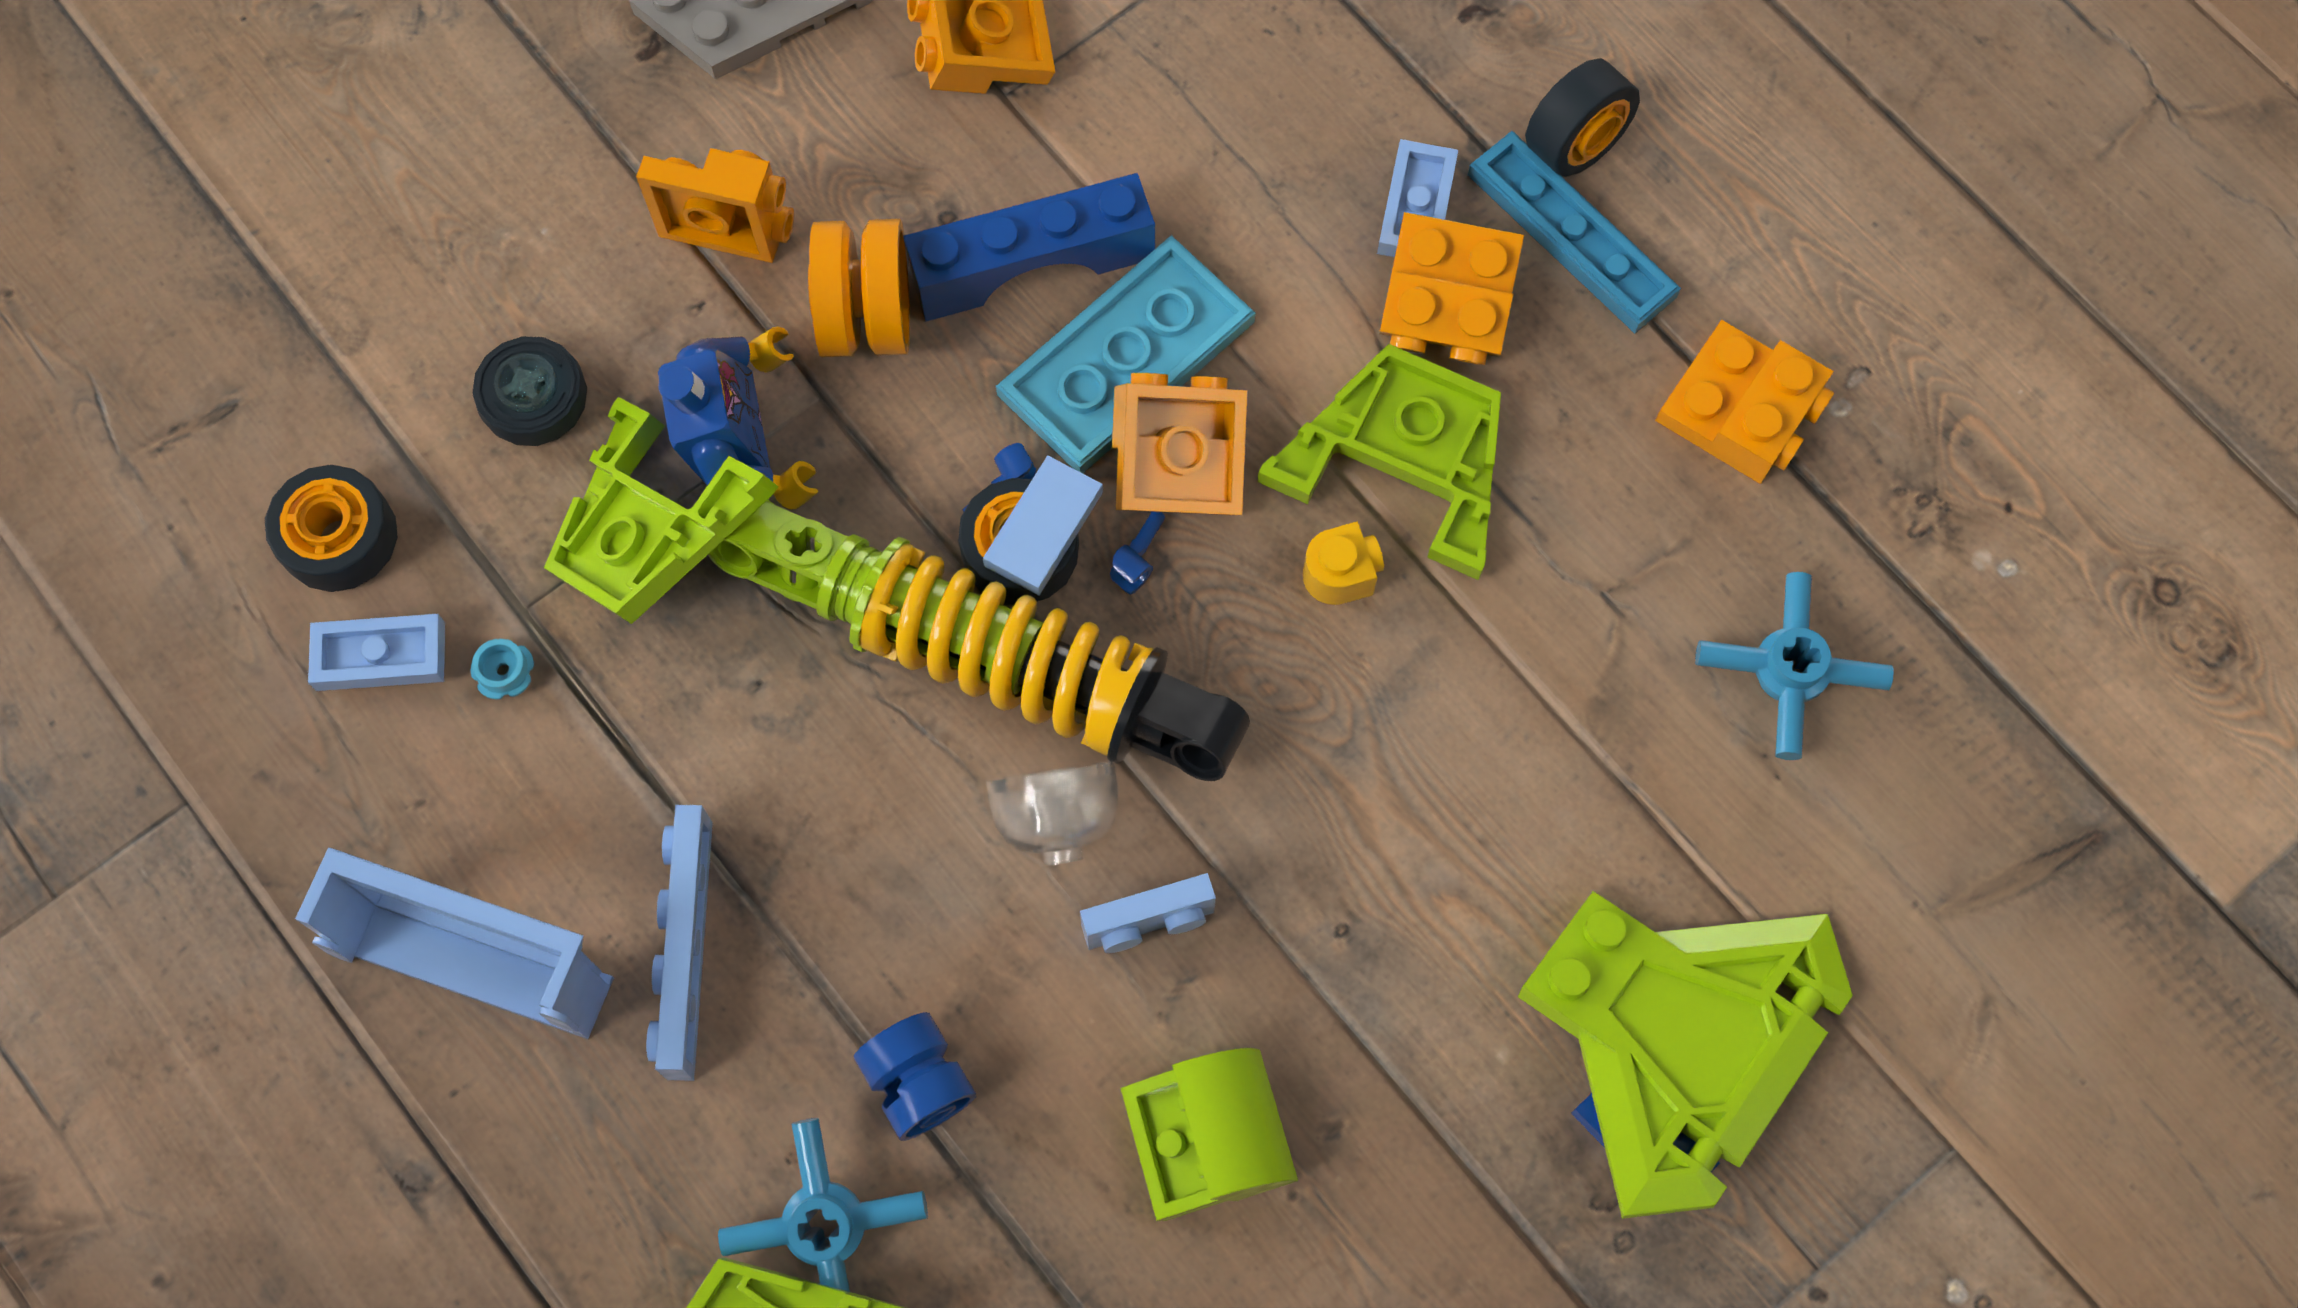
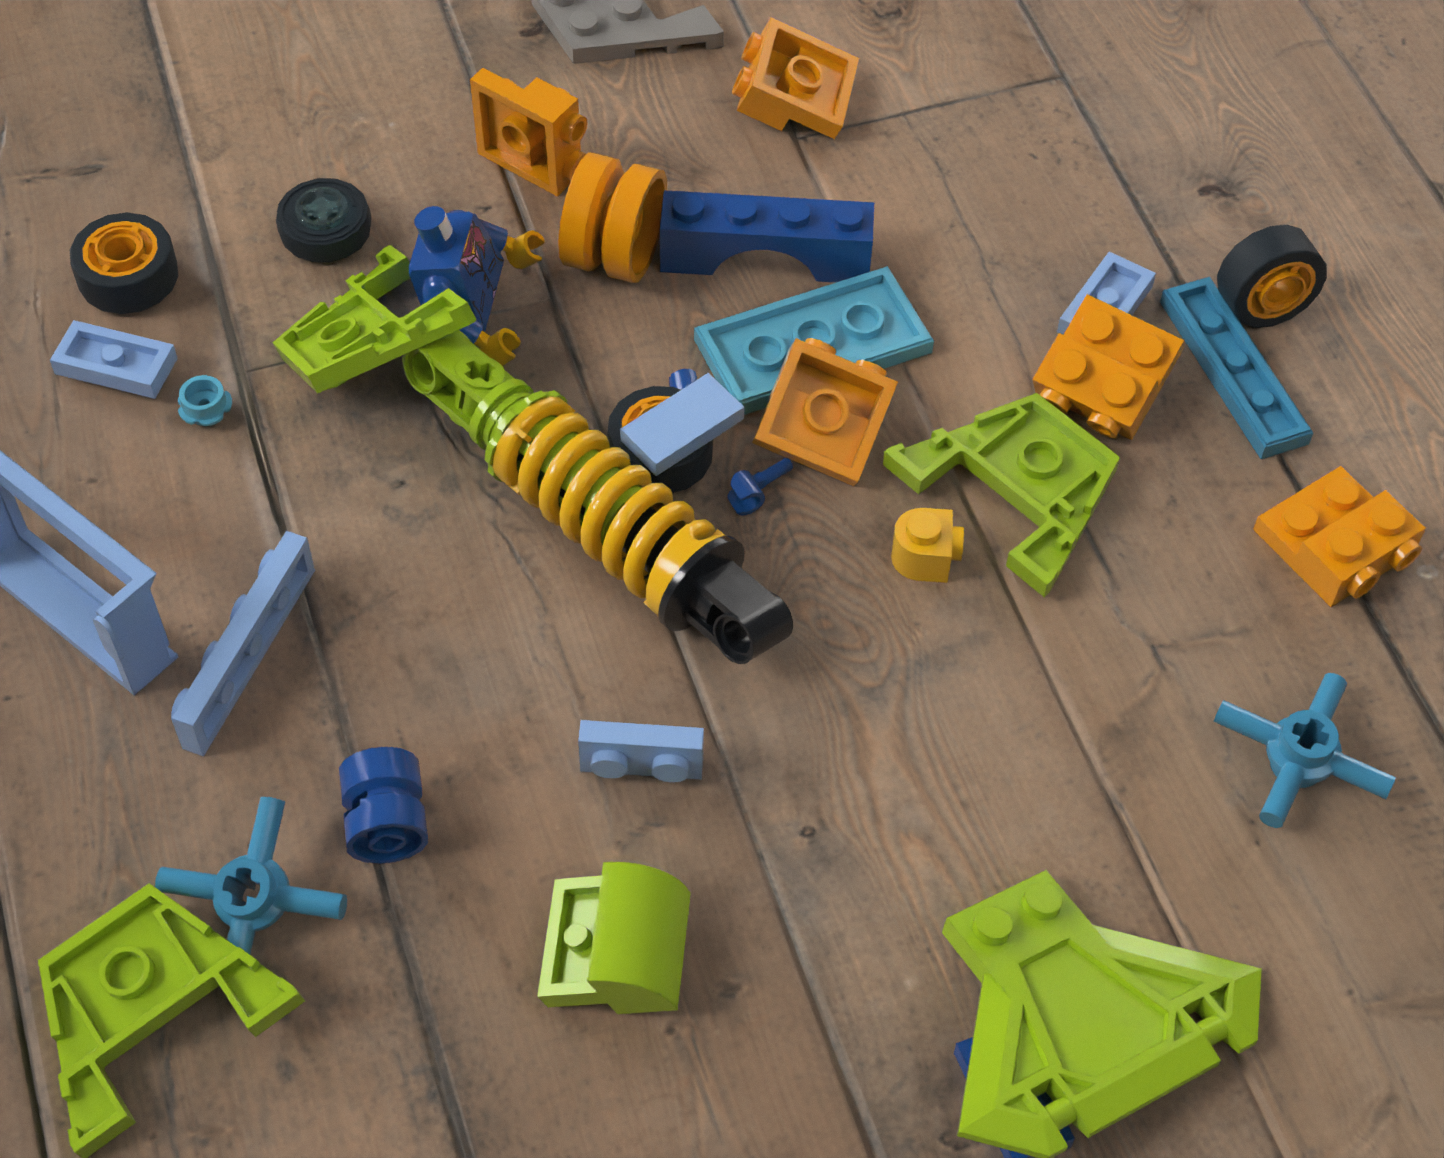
camera: 20 degrees right, 15 degrees down
(1055, 809) = (598, 638): clear cylinder -> none

